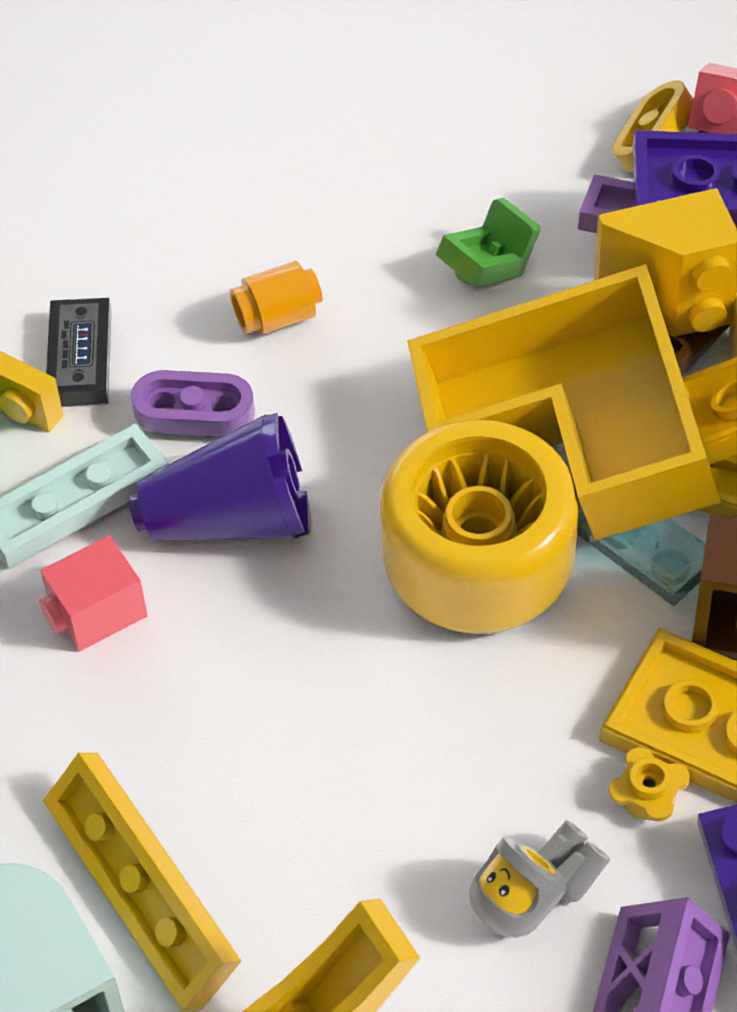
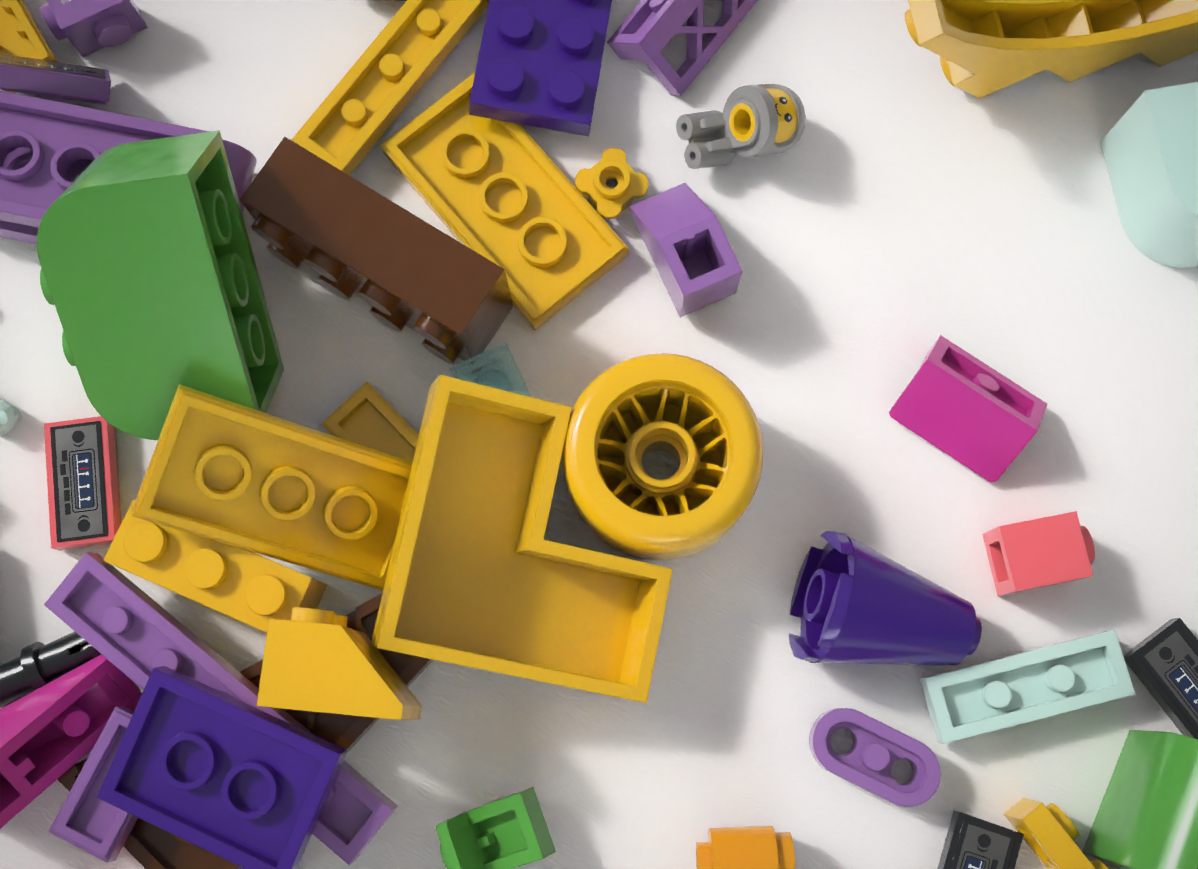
camera: 160 degrees left, 25 degrees up
(141, 882) = (1074, 269): yellow plate -> none
(194, 706) = (968, 410): none -> dark pink panel
(542, 731) = (687, 248): none -> medium lavender slope

